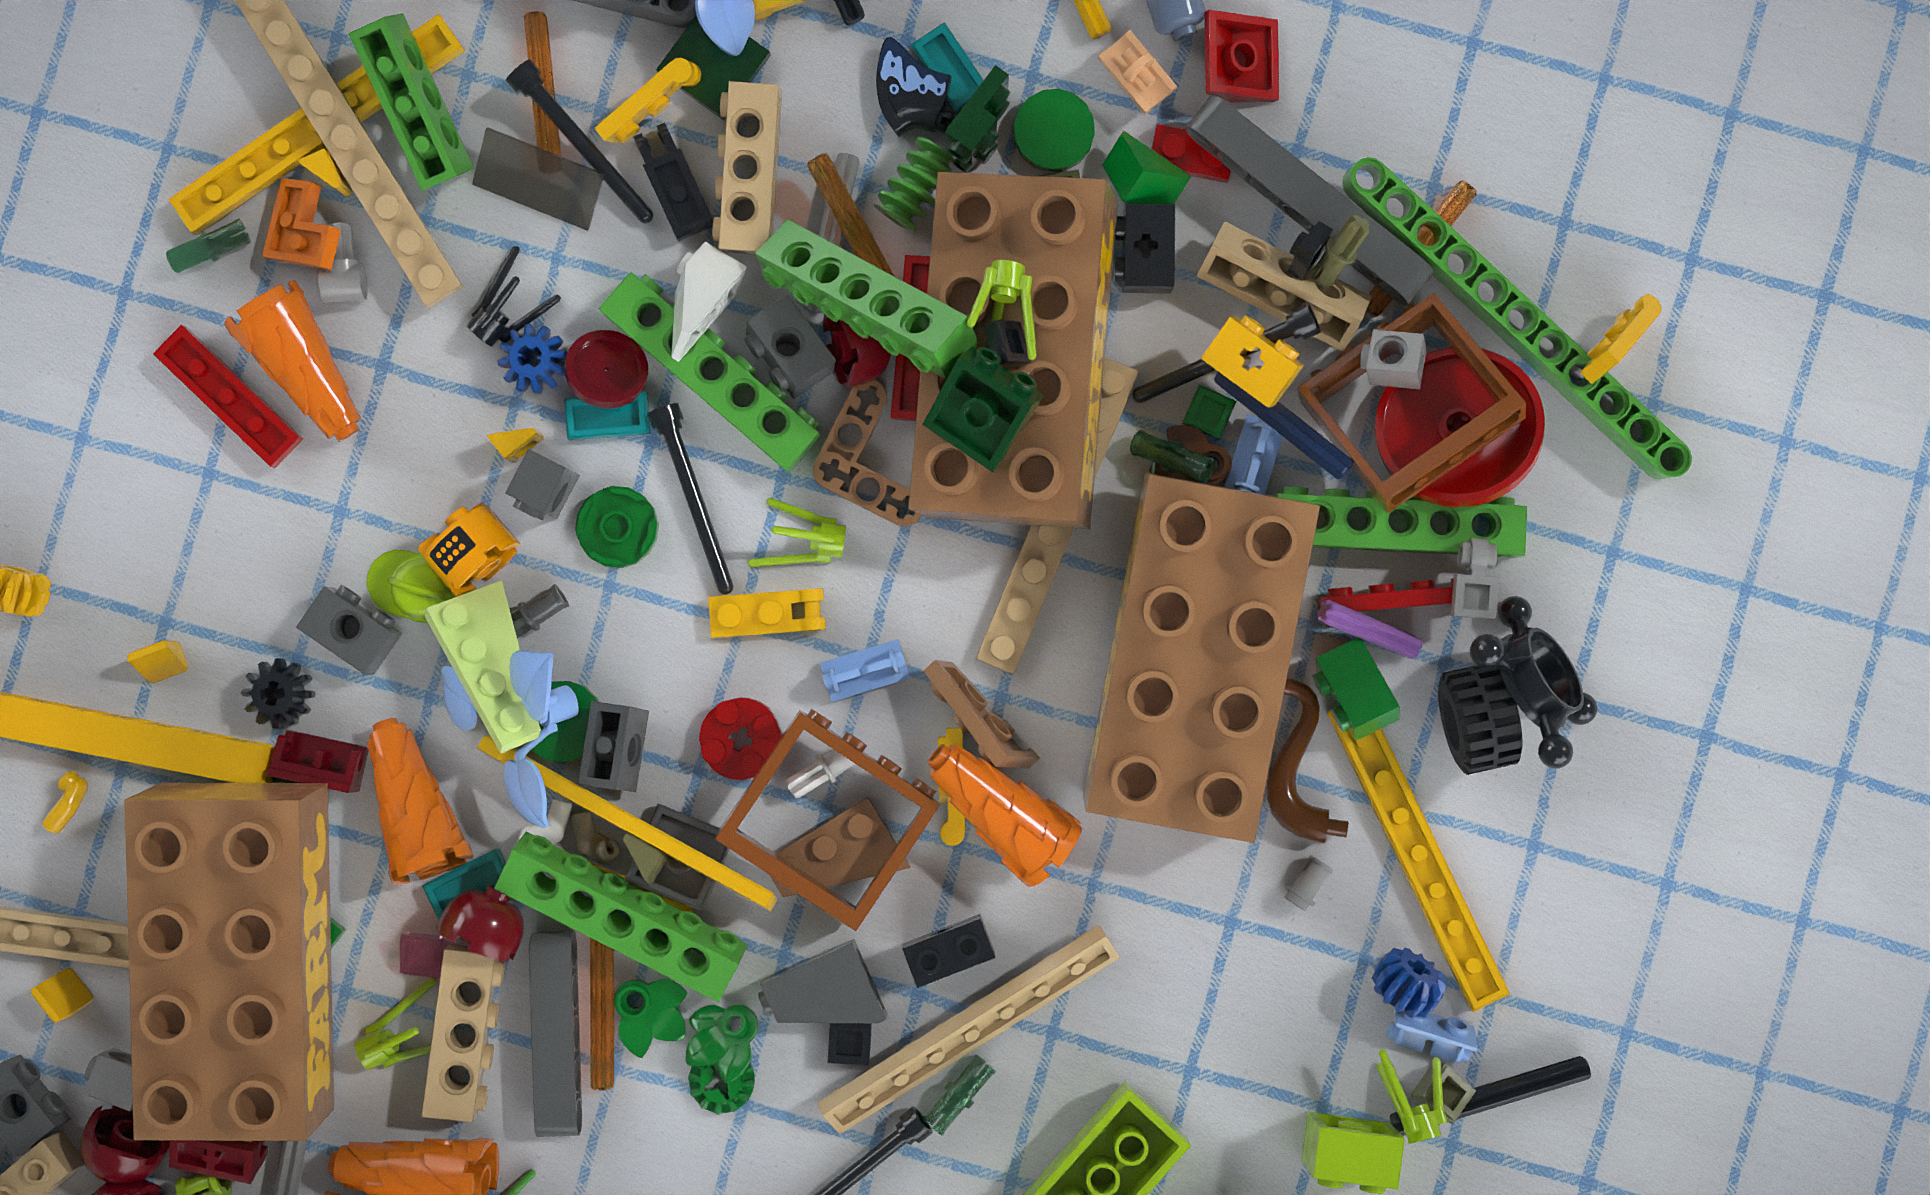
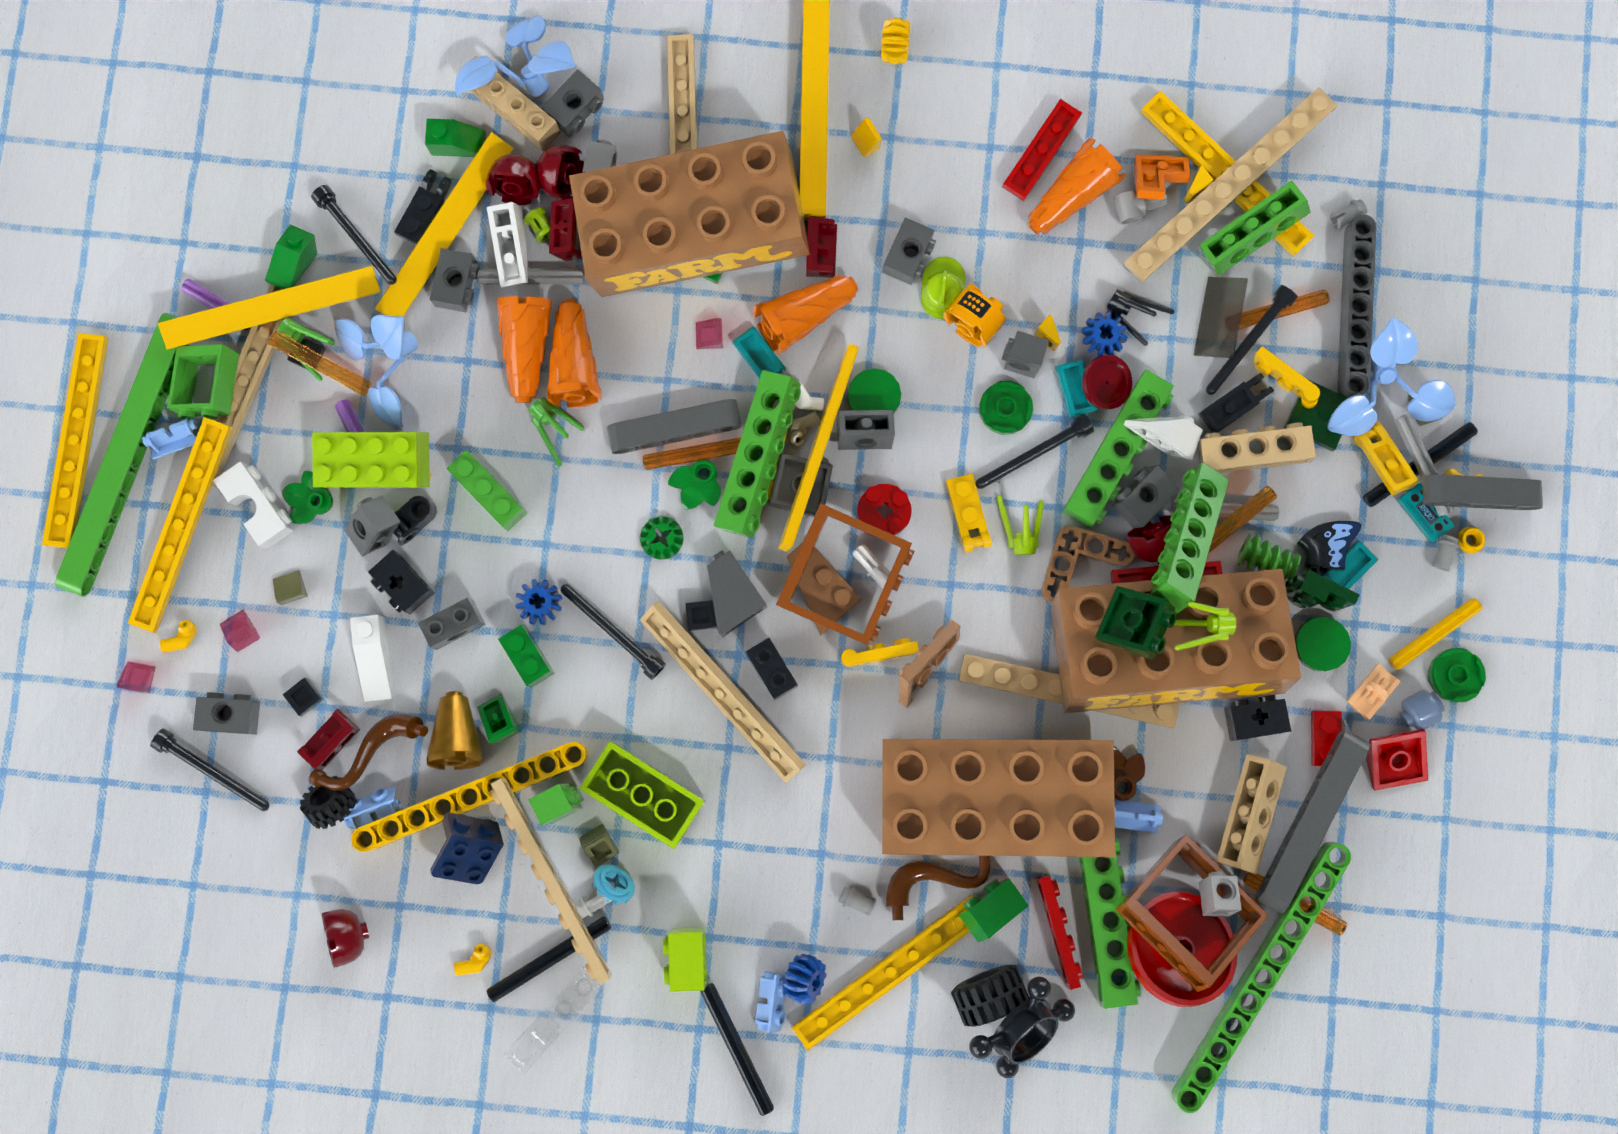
camera: 75 degrees right, 5 degrees down
(62, 995) = (646, 117): yellow slope -> none
(68, 804) = (766, 99): yellow arm -> none
(207, 246) = (1134, 120): clear green axle -> none
(278, 677) = (867, 208): black gear -> none
(381, 1045) = (647, 318): lime plant -> none
(442, 1095) = (623, 362): tan brick -> none
(479, 642) = (908, 339): yellowish green wing -> none
(484, 922) = (739, 368): dark red cylinder -> none
(532, 682) = (900, 368): light blue plant -> none
(538, 610) = (937, 361): dark grey axle -> none
(647, 858) = (799, 463): olive slope -> none
(718, 1043) = (686, 530): green plate -> none
(864, 670) = (943, 583): light blue hinge -> none
(959, 1095) = (678, 692): clear green pin -> none
(1007, 814) = (869, 690): orange cone -> none
(1008, 342) = (1182, 631): black plate -> none
(1143, 174) = (1306, 707): green slope -> none
(1172, 456) = (1124, 758): clear green pin -> none
(1209, 412) = (1157, 780): green tile -> none
(1229, 357) = (1199, 783): yellow brick -> none
(1293, 430) = (1162, 828): dark blue axle -> none
(1298, 324) = (1230, 827): black piece -> none
(1308, 249) = (1280, 825): black plate -> none
(1341, 251) = (1284, 846): olive axle -> none
(1369, 629) = (1034, 911): medium lavender axle -> none
(1417, 1121) = (714, 1000): lime plant -> none
(1455, 1092) = (734, 1016): olive slope -> none
(1475, 593) = (1073, 977): light grey plate -> none
(1621, 337) = (1265, 1048): yellow plate -> none

